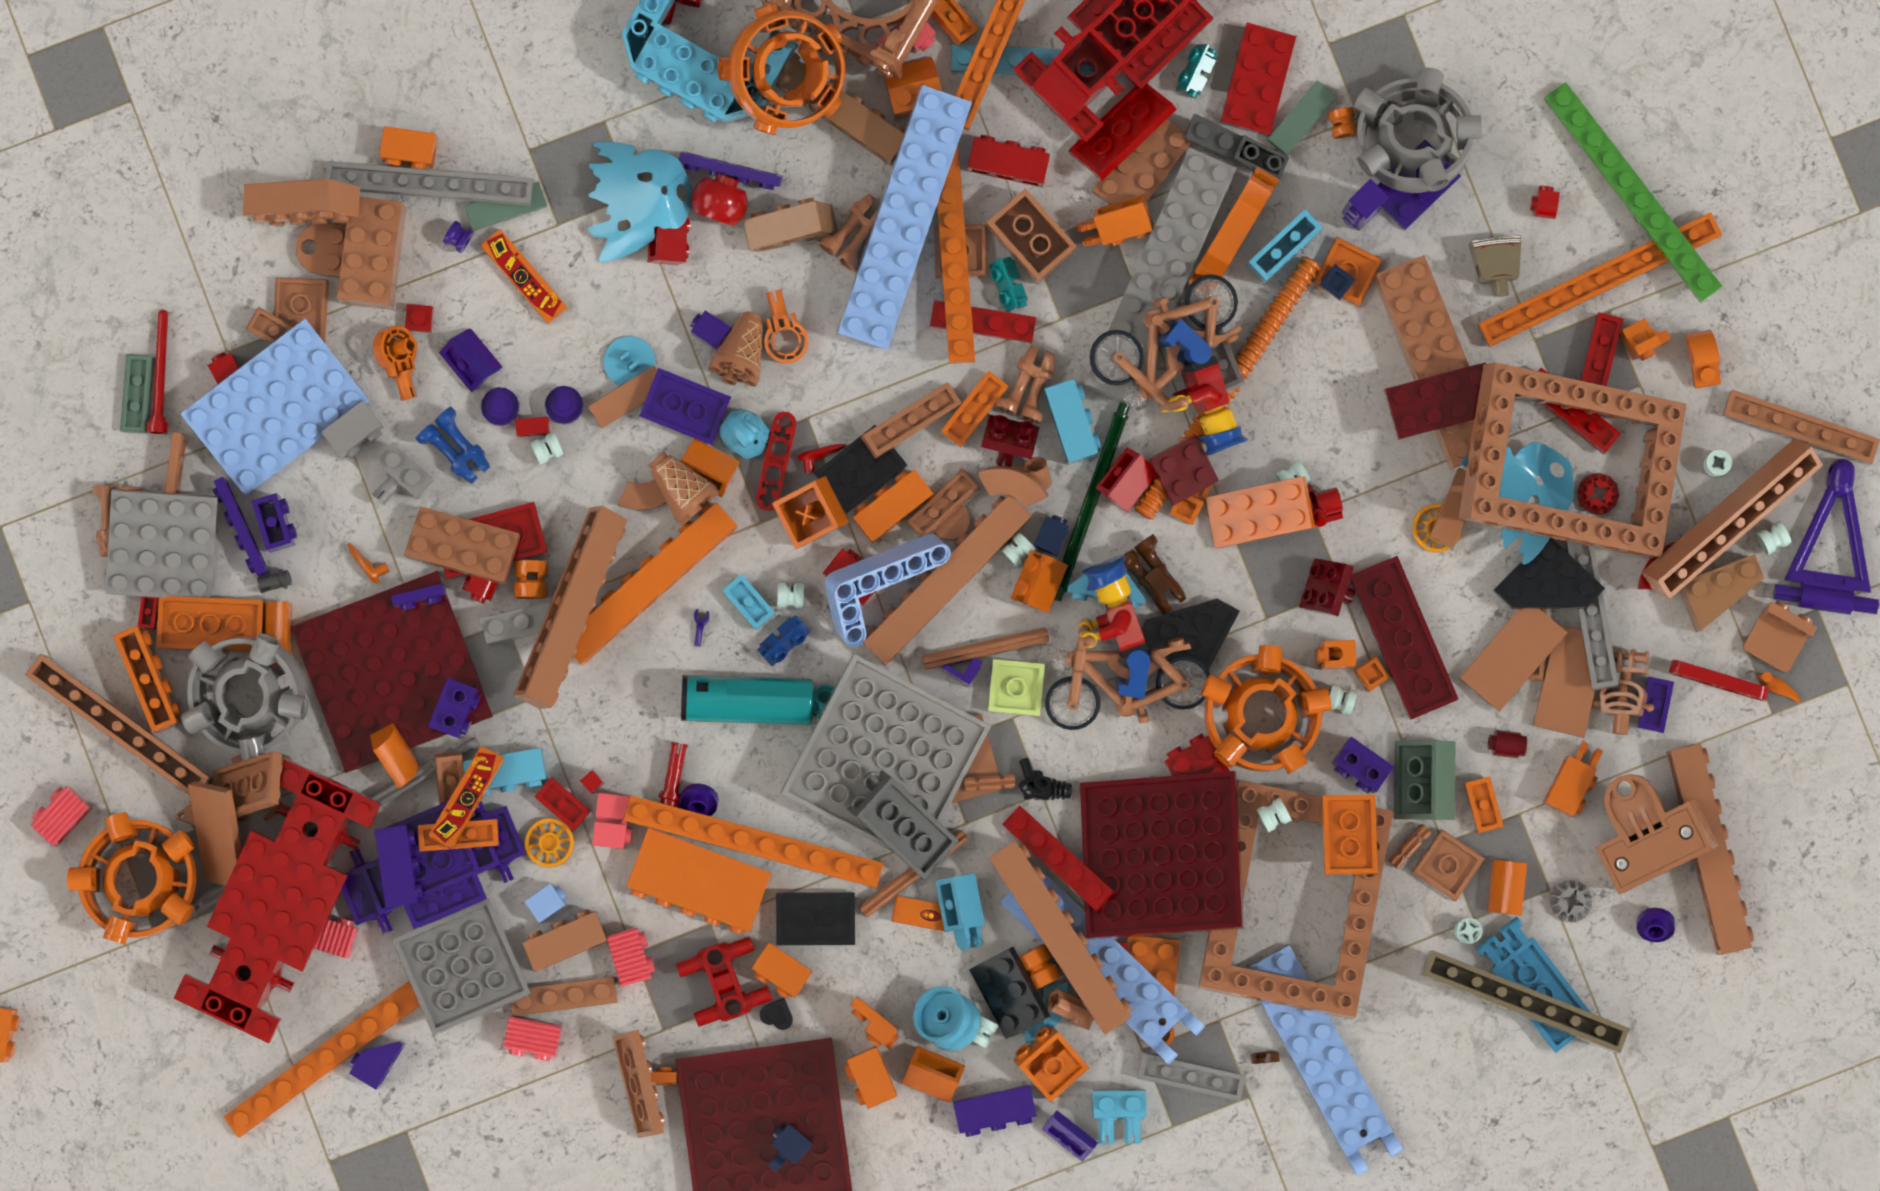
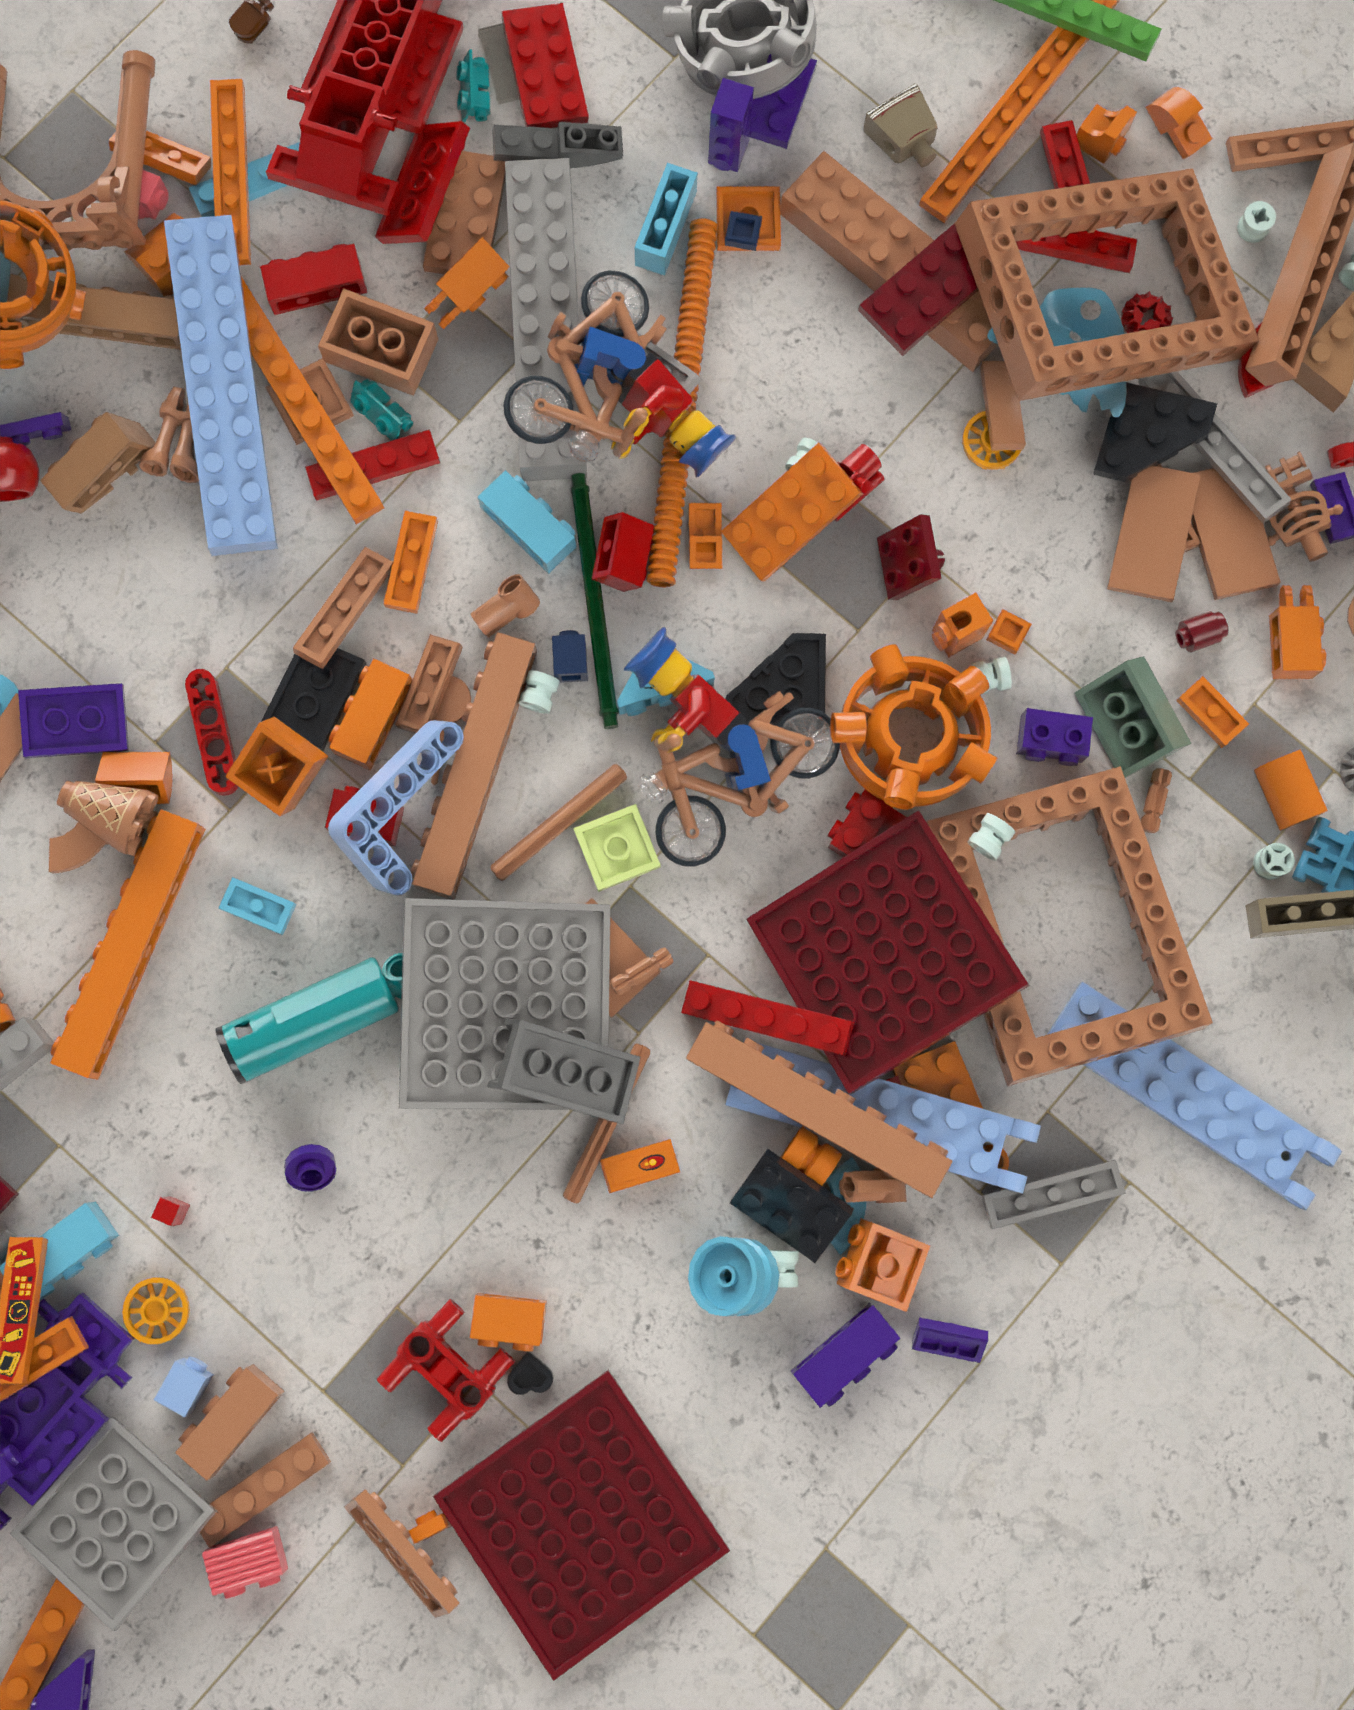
camera: 25 degrees left, 5 degrees down
(562, 804) = (148, 1255): red plate -> none
(570, 607) = (40, 1019): nougat brick -> none
(610, 828) = (219, 1245): coral piece -> none
(630, 956) = (318, 1398): coral brick -> none
(673, 776) = (273, 1178): red pin -> none
(698, 881) = (356, 1265): orange brick -> none
(700, 627) = (214, 960): dark purple hand -> none
(709, 329) = (64, 622): dark purple brick -> none
(740, 352) = (108, 630): nougat cone -> none
(744, 433) = (152, 714): medium azure hair -> none
(753, 841) = (395, 1183): orange plate -> none
(779, 311) = (136, 566): orange pin -> none
(790, 595) = (302, 873): light aqua wheel -> none
(791, 1145) = (624, 1531): dark blue brick -> none
(793, 634) = (327, 916): blue hinge -> none
(809, 456) = (257, 698): red bar -> none
(815, 918) = (518, 1237): black plate -> none
(871, 1077) = (680, 1398): orange brick -> none
(879, 1029) = (661, 1330): orange plate -> none
(933, 1074) = (751, 1350): orange brick -> none
(961, 909) = (684, 1136): medium azure hinge -> none
(968, 675) = (554, 858): dark purple panel -> none
(1009, 438) = (466, 572): dark red plate -> none
(1013, 483) = (495, 616): nougat tile -> none
(1039, 374) = (450, 489): nougat piece -> none
(1039, 581) = (581, 713): orange brick -> none
(1040, 787) = (703, 947): black piece -> none
(1112, 1104) = (989, 1270): medium azure brick -> none
(1158, 578) = (714, 644): reddish brown piece -> none
(1183, 469) = (680, 508): dark red plate -> none
(1237, 225) = (602, 213): orange piece -> none
(1265, 1057) = (1126, 1126): reddish brown tile -> none
(1302, 118) = (614, 82): sand green tile -> none
(1343, 122) = (661, 66): orange wheel -> none
(1349, 834) = (1089, 815): orange plate -> none
(1403, 637) = (1023, 574): dark red plate -> none
(1448, 865) = (1209, 800): nougat tile -> none
(1545, 203) = (923, 42): red plate -> none

